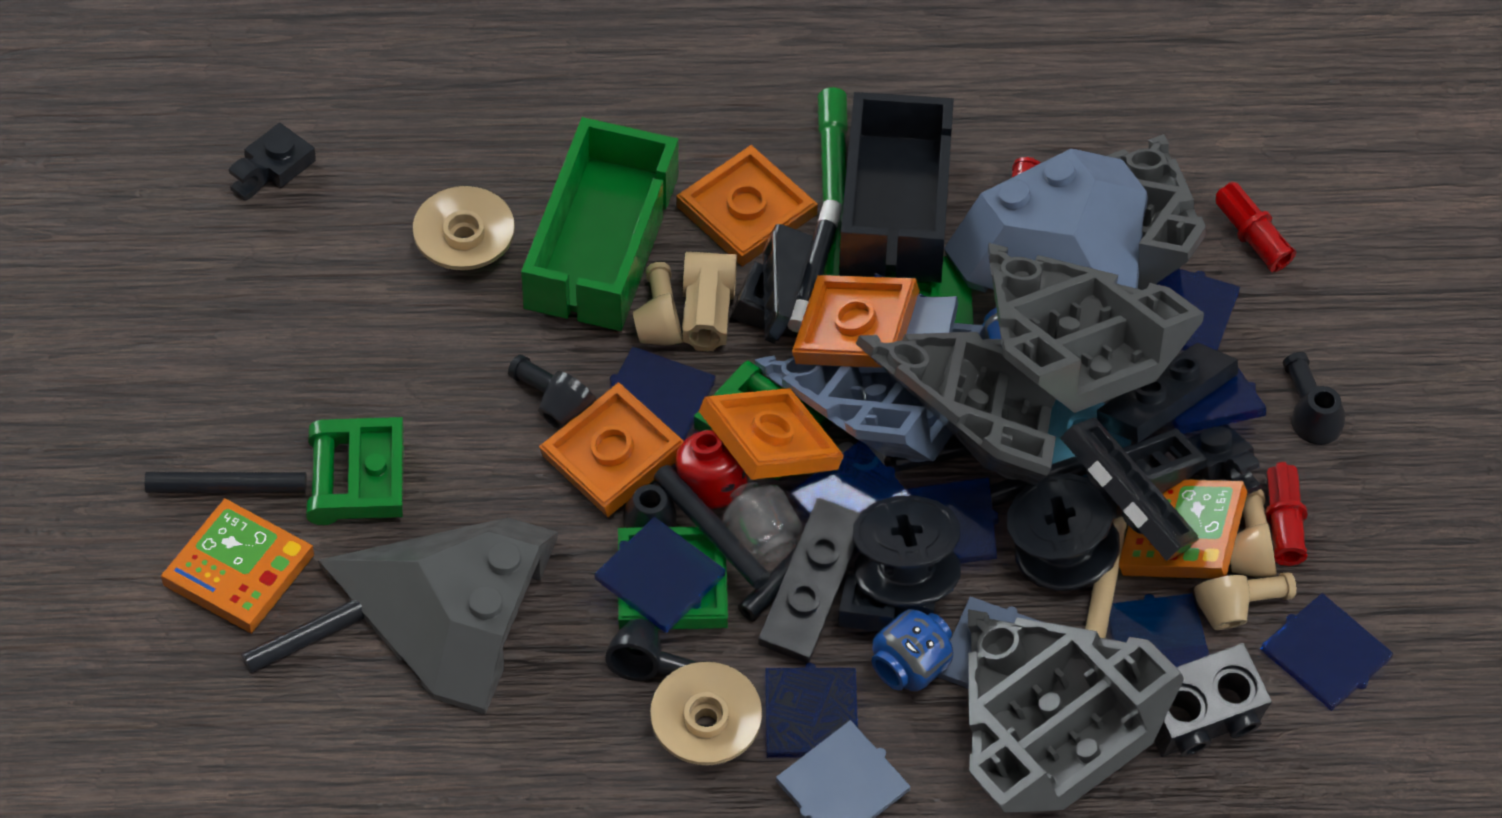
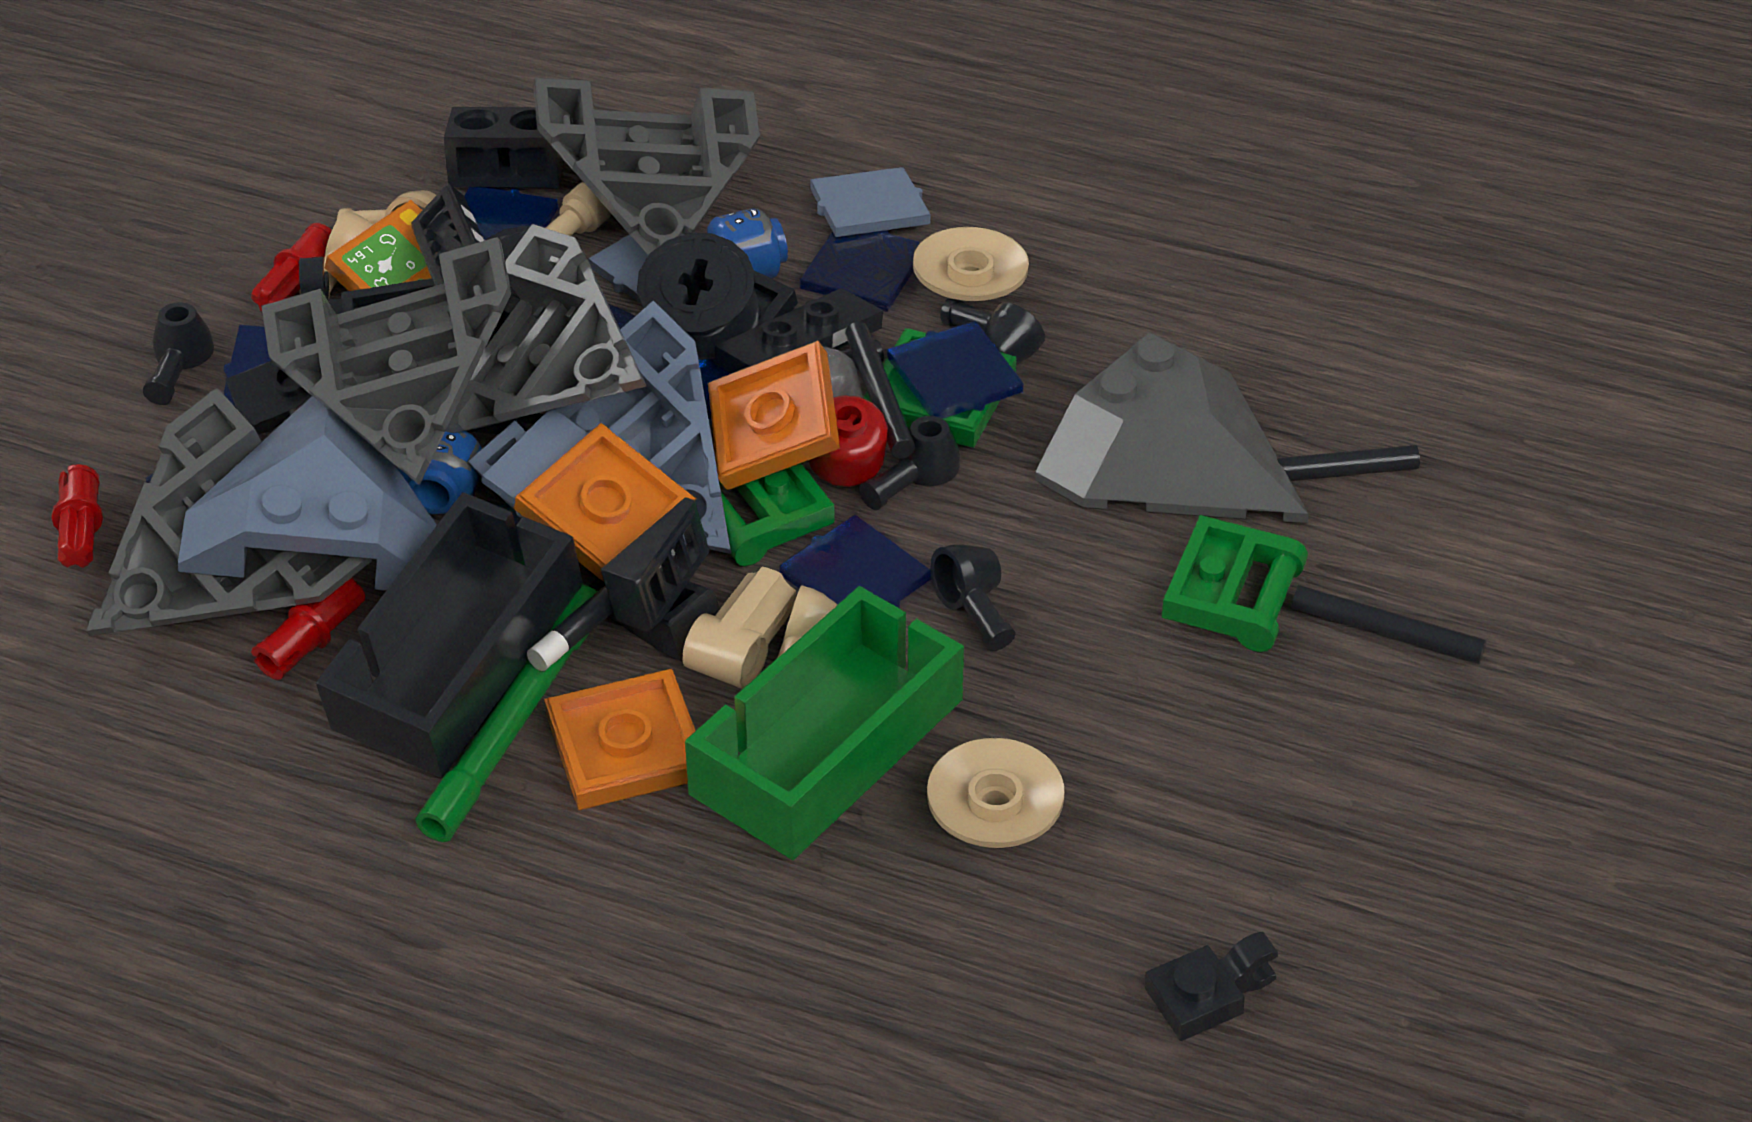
camera: 155 degrees left, 10 degrees down
(237, 565) = (1399, 539): orange tile -> none
(612, 449) = (936, 505): orange tile -> none
(1326, 651) = (352, 177): clear blue piece -> none

